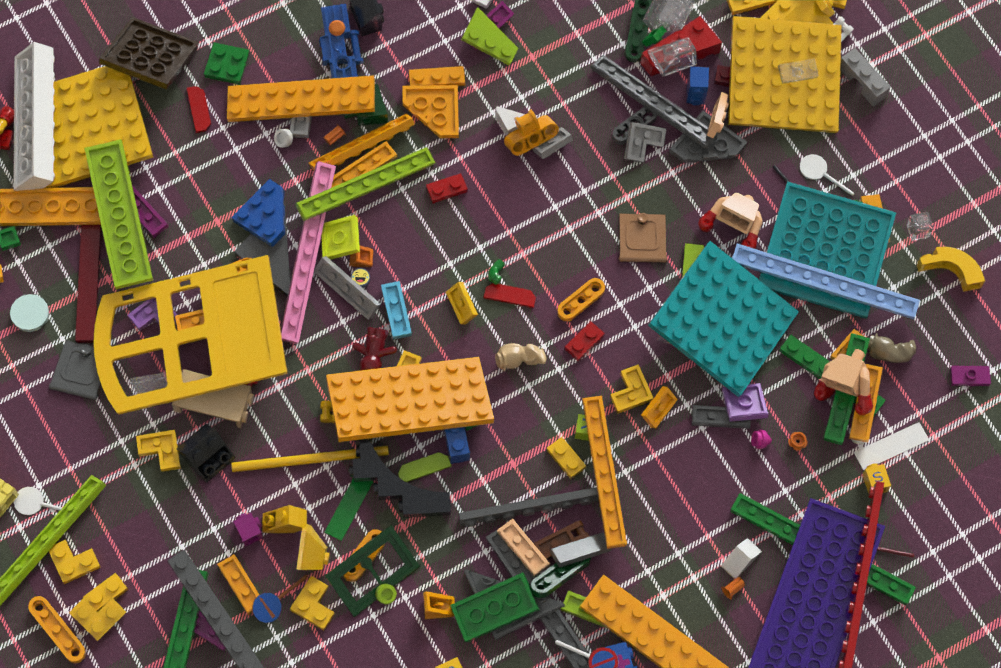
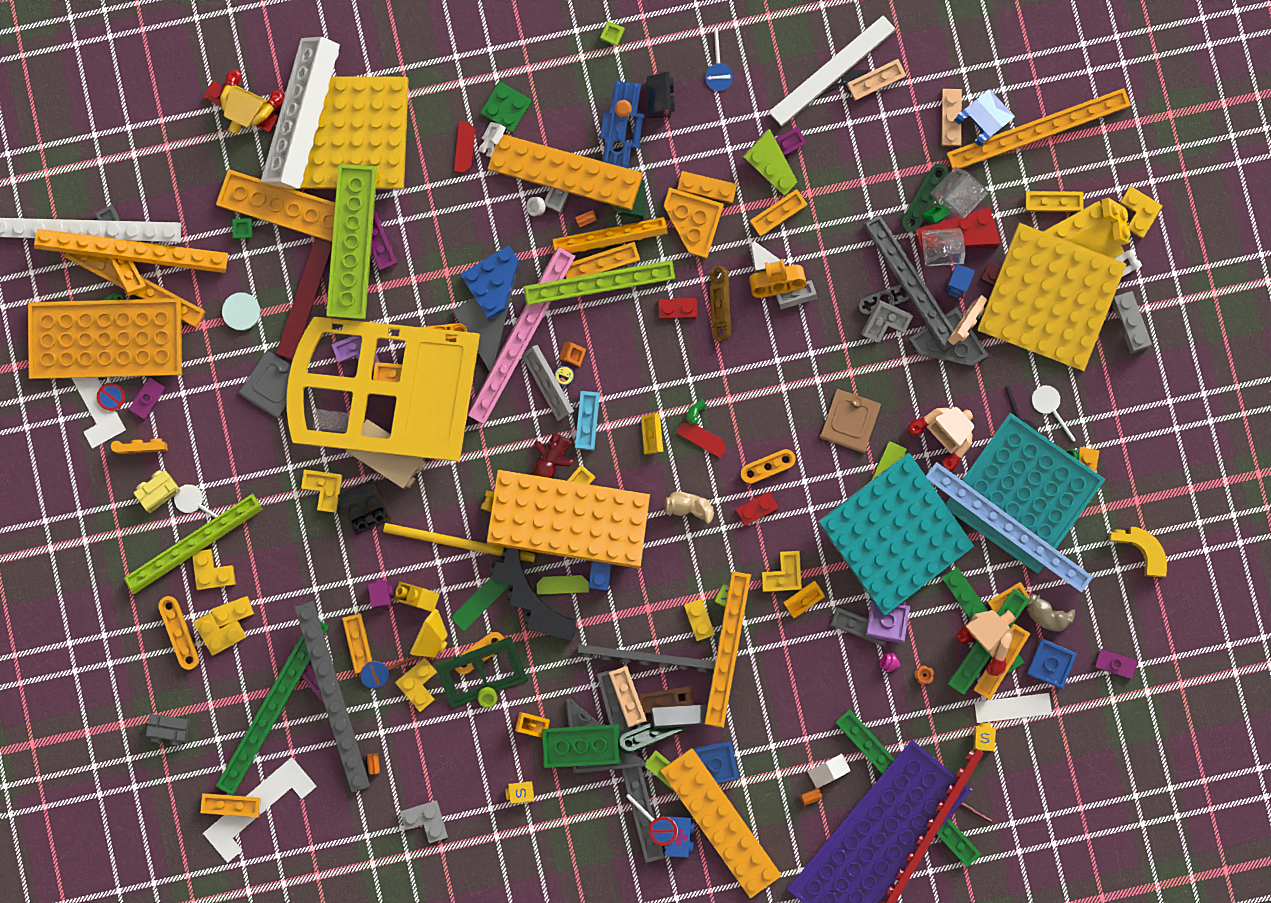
camera: 25 degrees right, 15 degrees up
(149, 53) = (431, 76): dark brown plate -> none
(222, 89) = (491, 136): none -> white plate
(340, 237) = (557, 330): neon yellow plate -> none
(485, 171) = (720, 304): none -> pearl gold plate
(510, 79) = (778, 213): none -> light orange plate
(634, 580) = (719, 761): none -> blue plate
(798, 71) = (1063, 301): clear plate -> none
(911, 393) = (1051, 663): none -> blue plate
(920, 226) = (1125, 497): clear brick -> none

